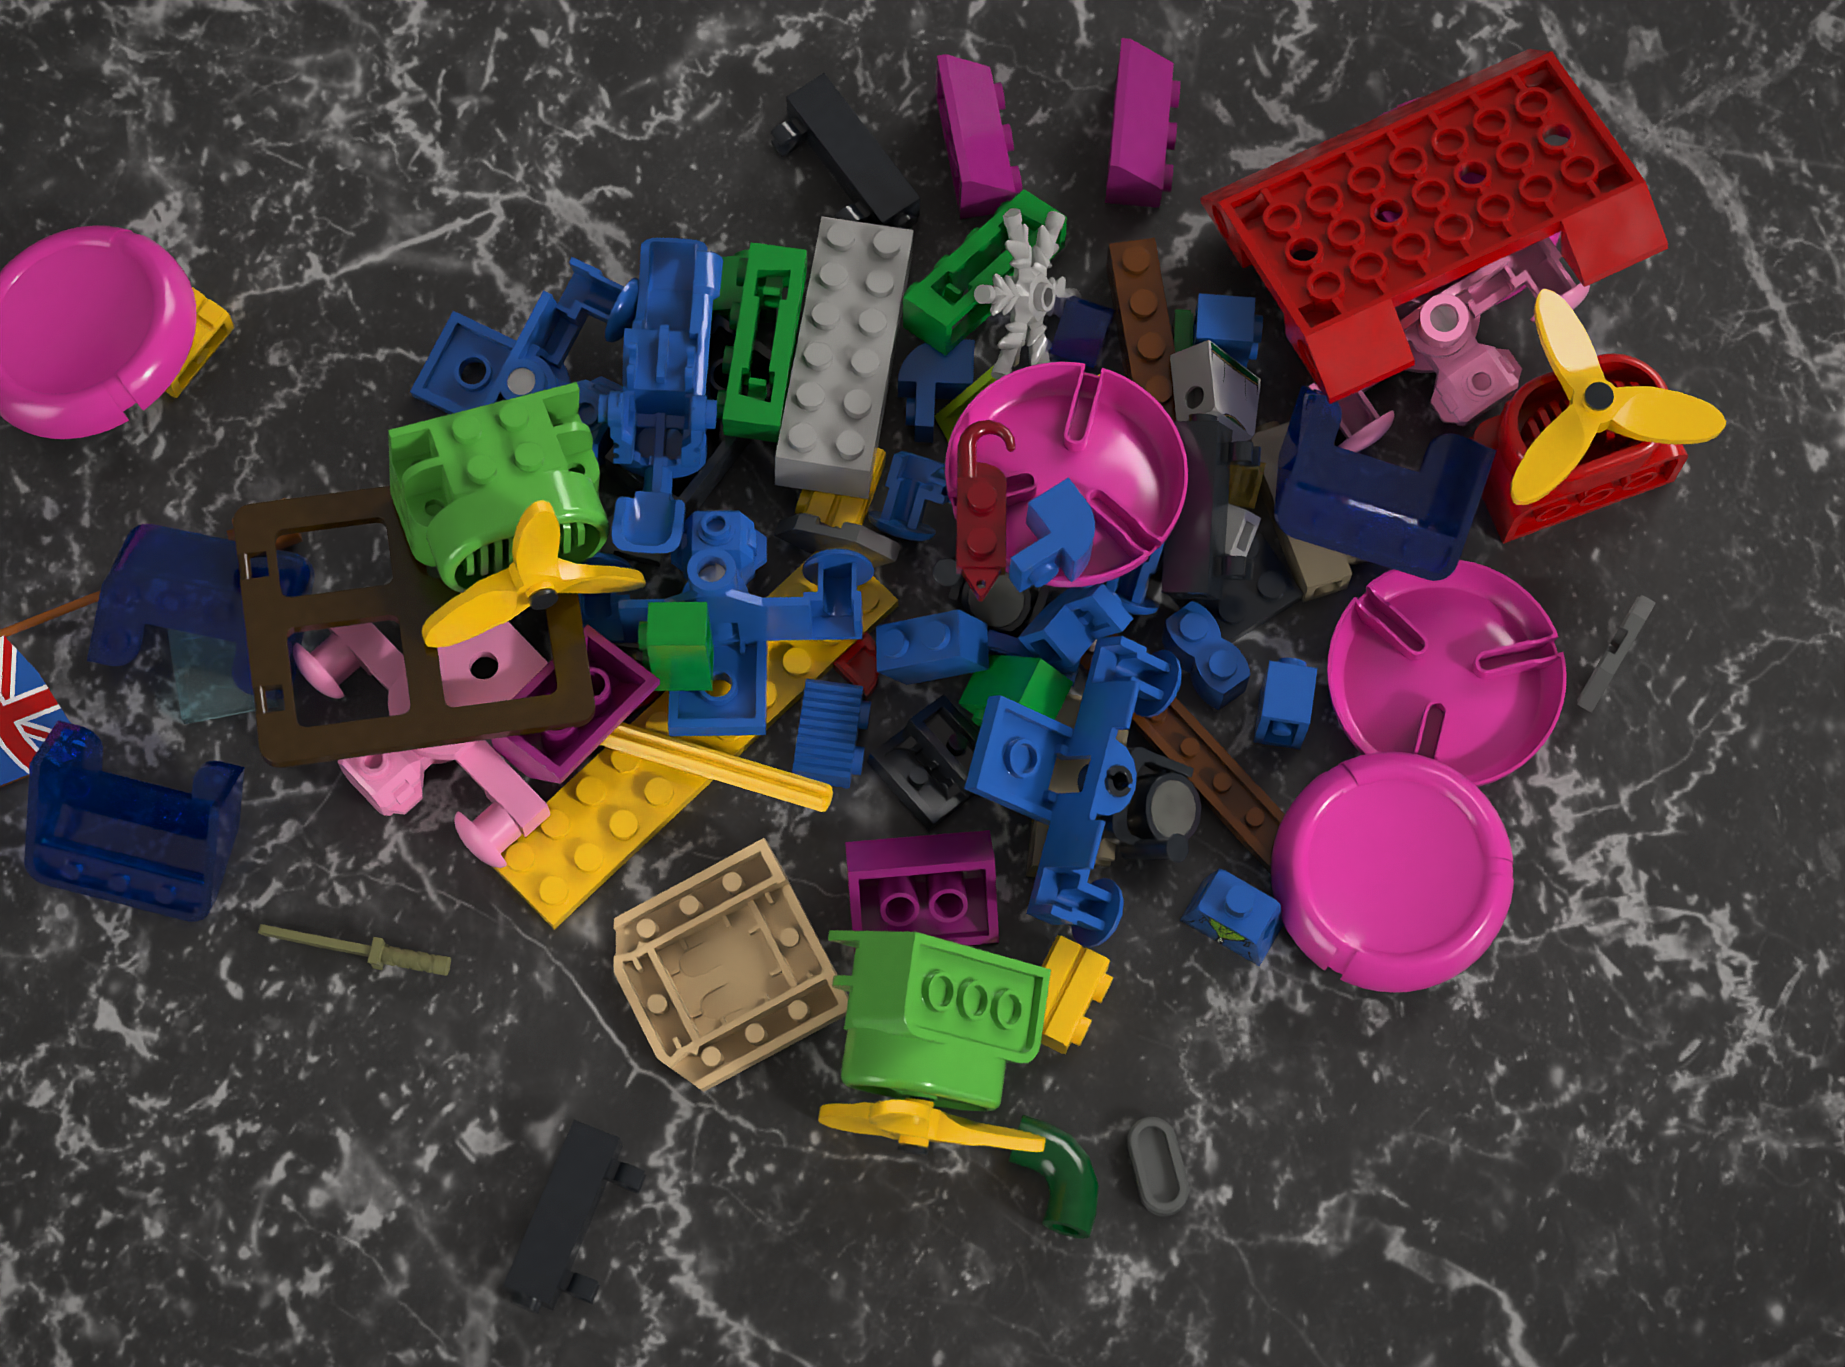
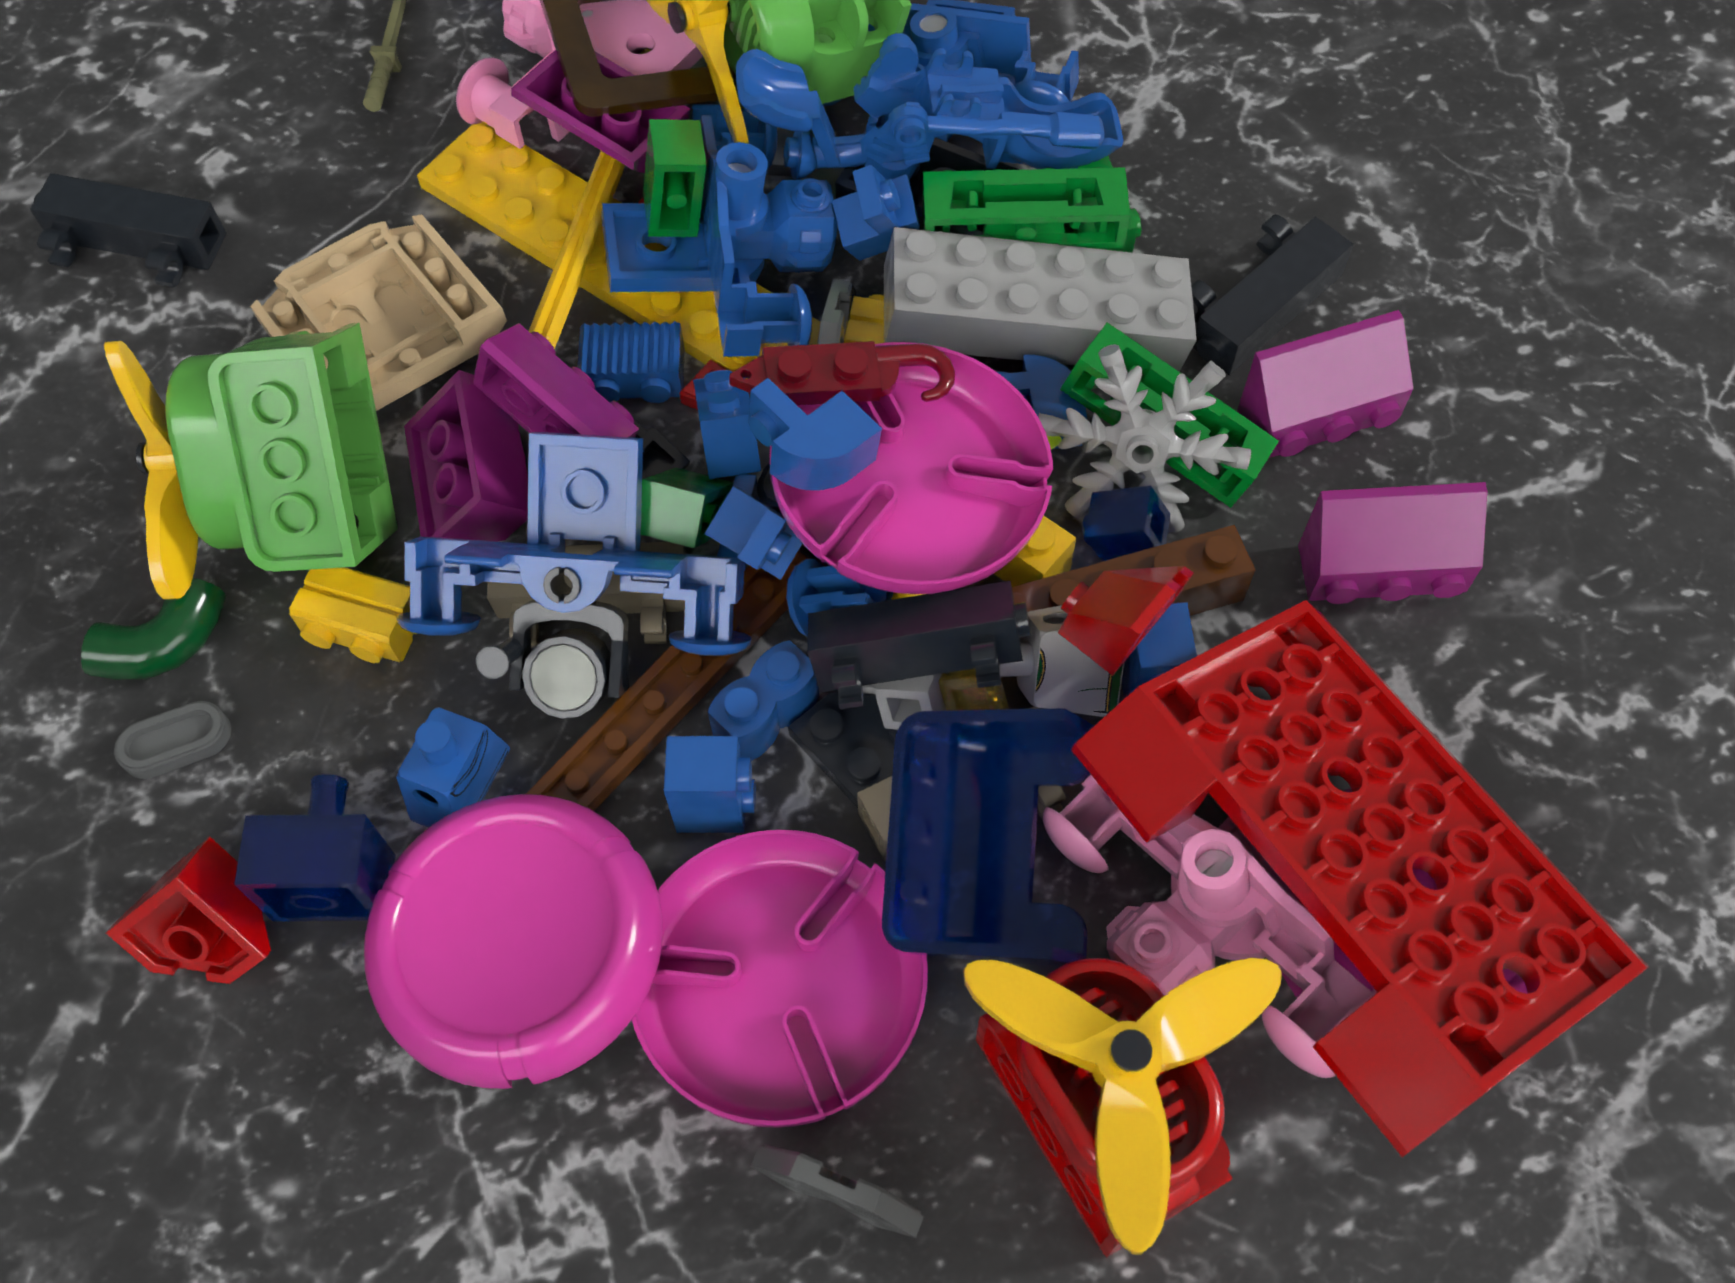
camera: 85 degrees right, 10 degrees down
(744, 472) = (873, 211): none -> blue brick
(897, 788) = (541, 391): none -> magenta slope
(1223, 334) = (1119, 611): none -> red slope
(1310, 1021) = (315, 862): none -> clear blue brick
(1332, 1130) = (195, 920): none -> red slope

